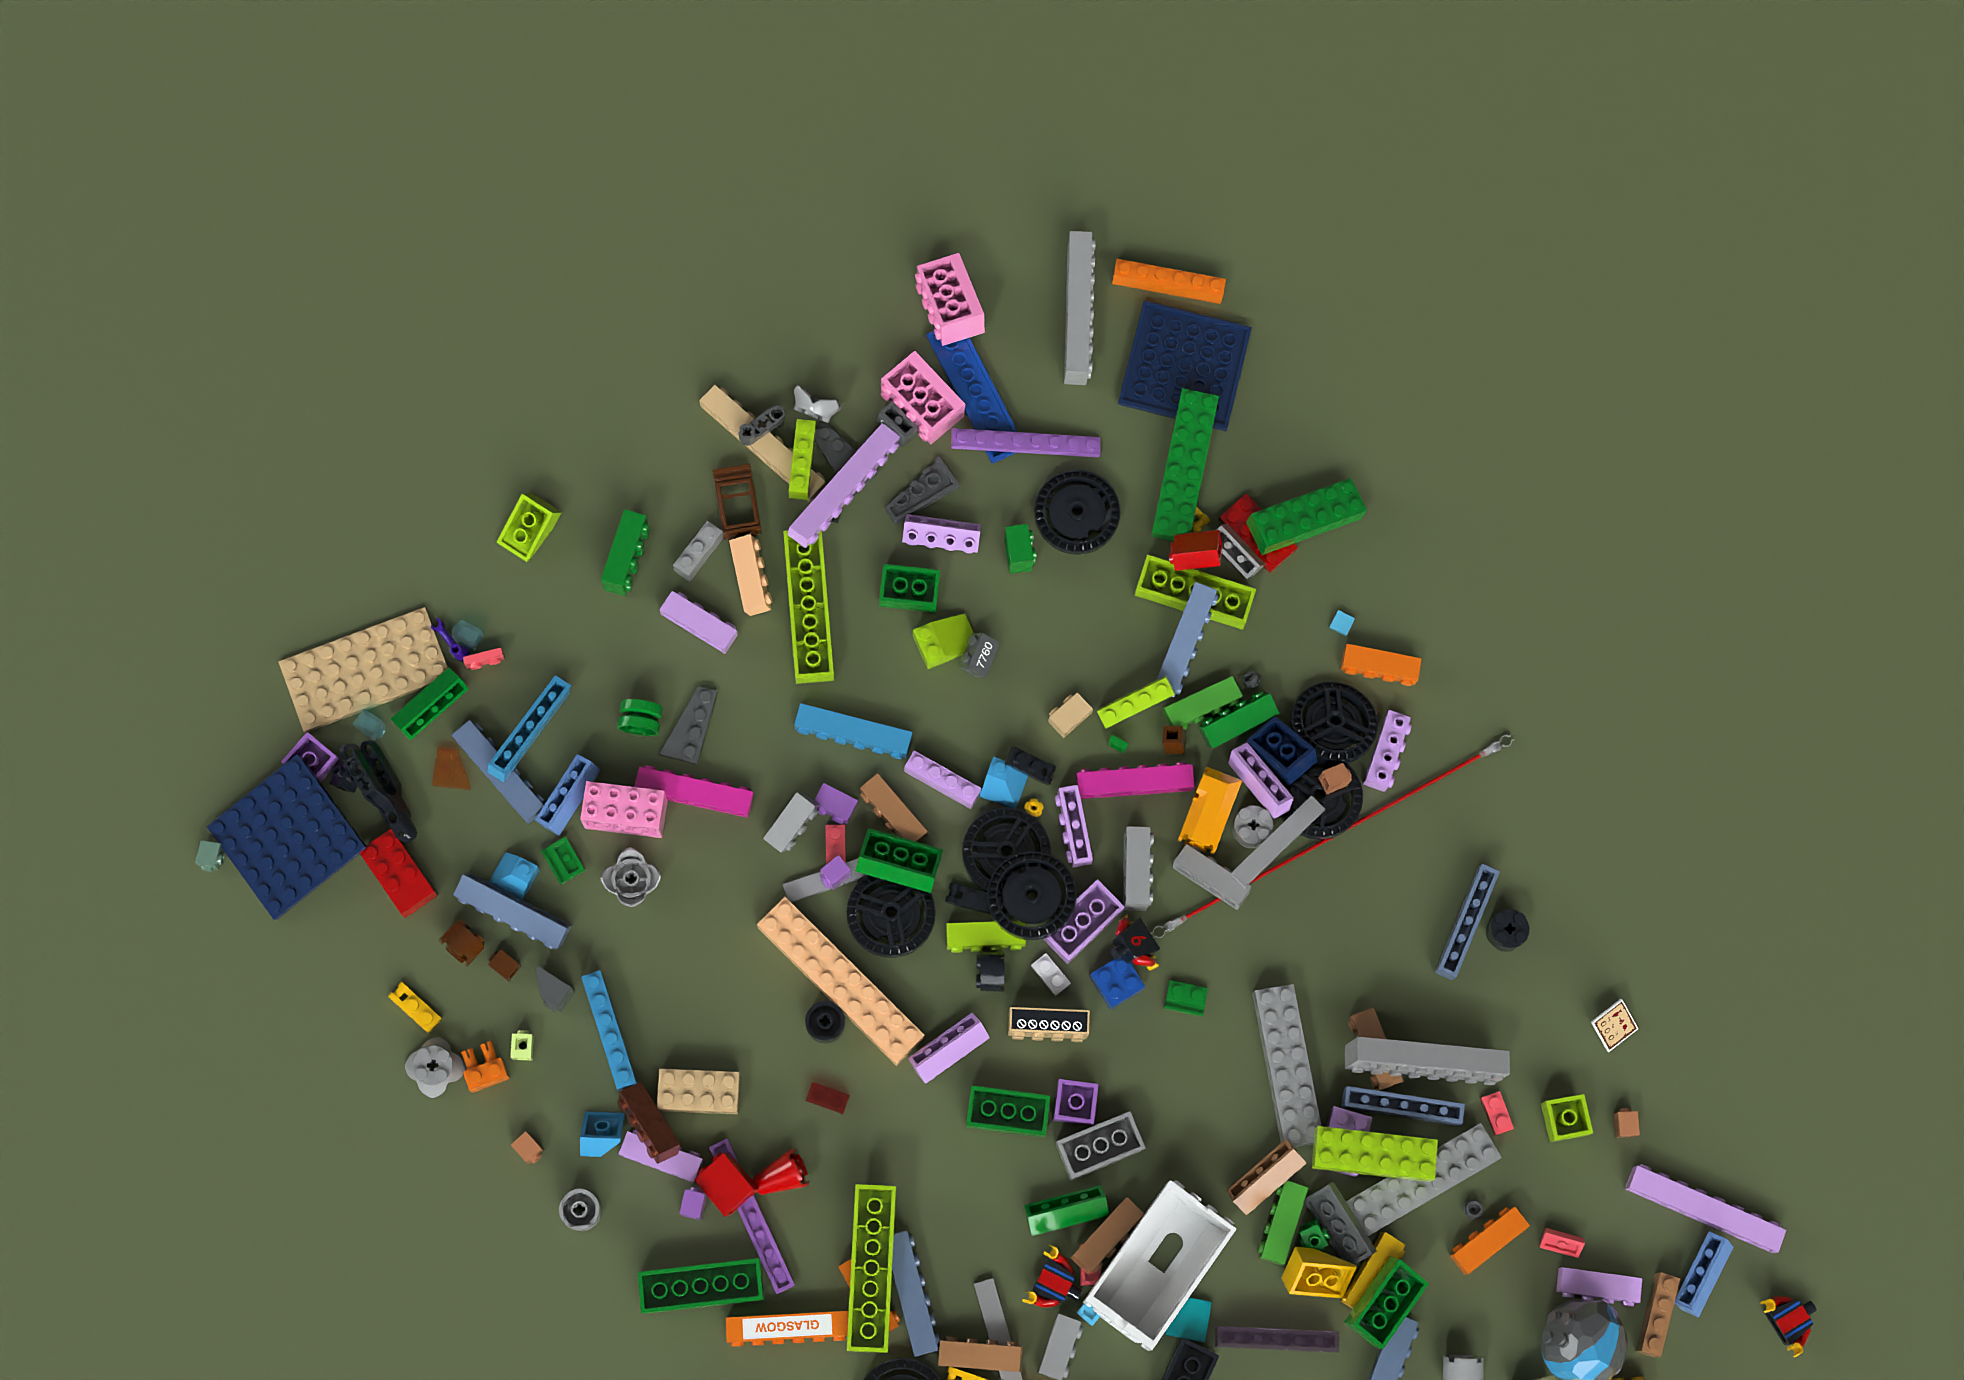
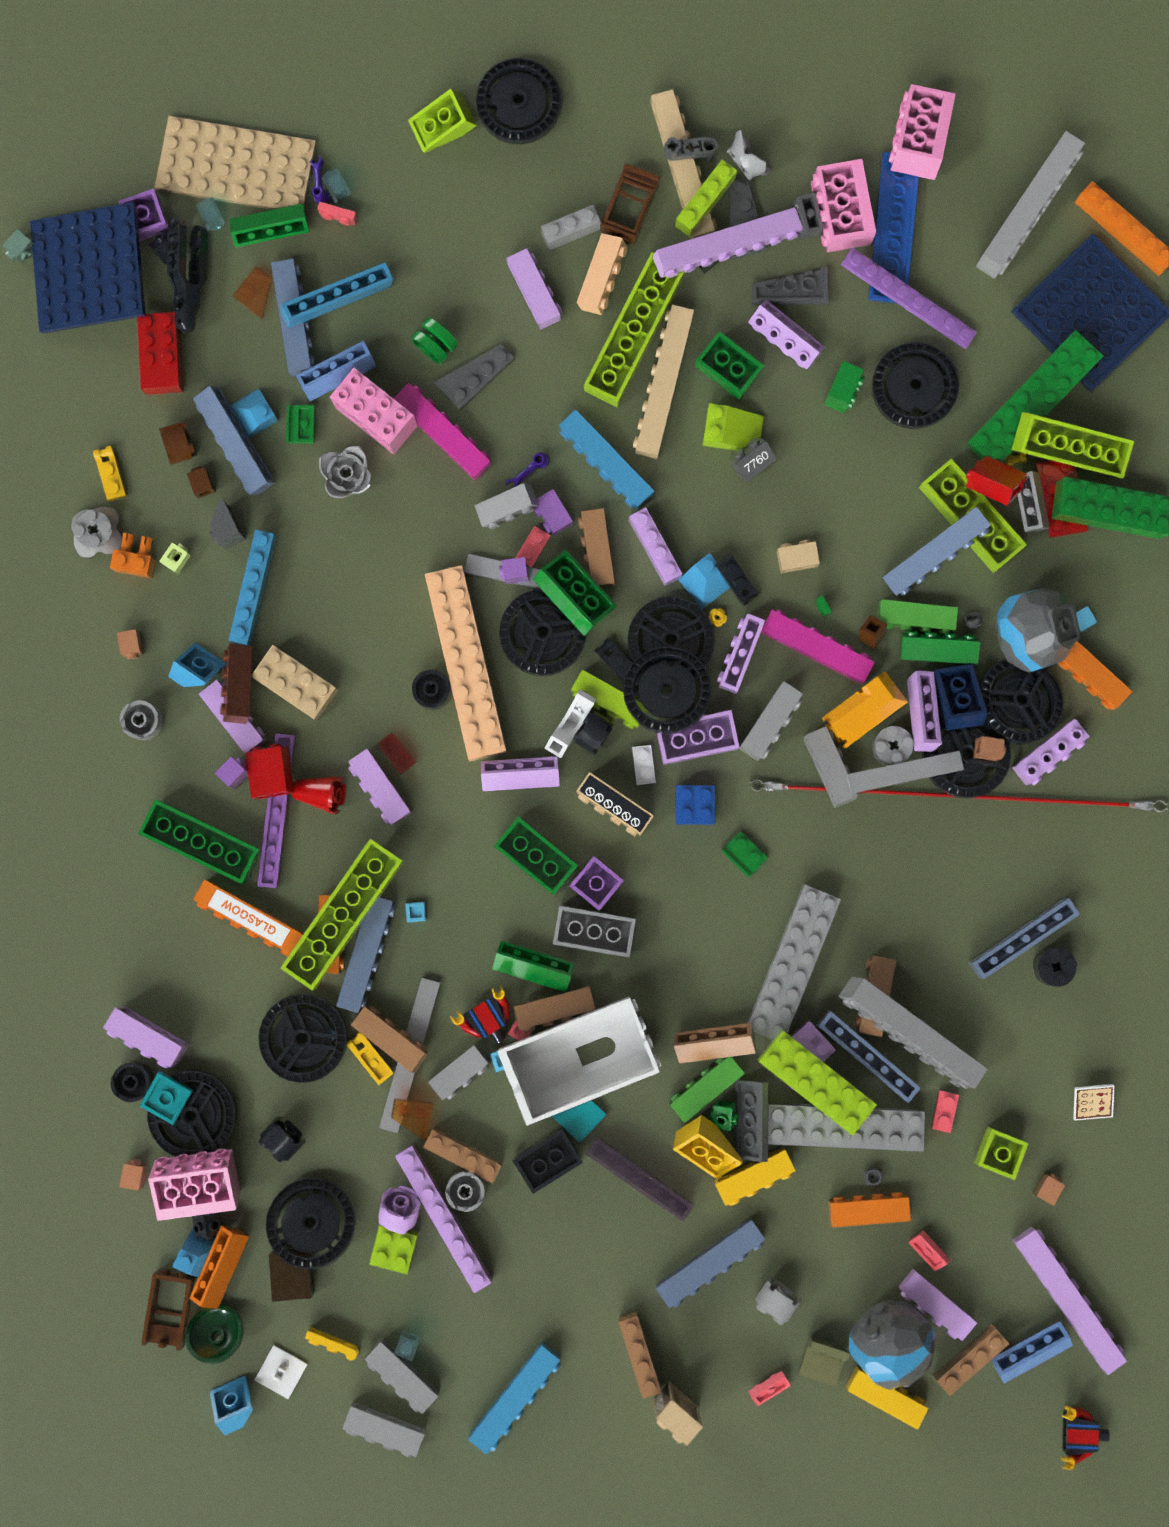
camera: 45 degrees right, 10 degrees up
(580, 457) = (516, 87): none -> black piece
(625, 553) = (507, 192): green brick -> none
(790, 780) = (531, 467): none -> dark purple brick
(832, 1137) = (379, 786): none -> lavender brick
(861, 633) = (664, 381): none -> tan brick
(931, 1228) = (415, 911): none -> medium azure tile
(965, 976) = (572, 721): none -> white arch
(1135, 943) = (728, 783): black torso -> none
(1136, 701) = (860, 579): lime brick -> none
(1240, 484) = (1072, 445): none -> lime brick
(1310, 653) = (1037, 629): none -> dark grey rock
(1386, 1302) = (747, 1208): green brick -> none

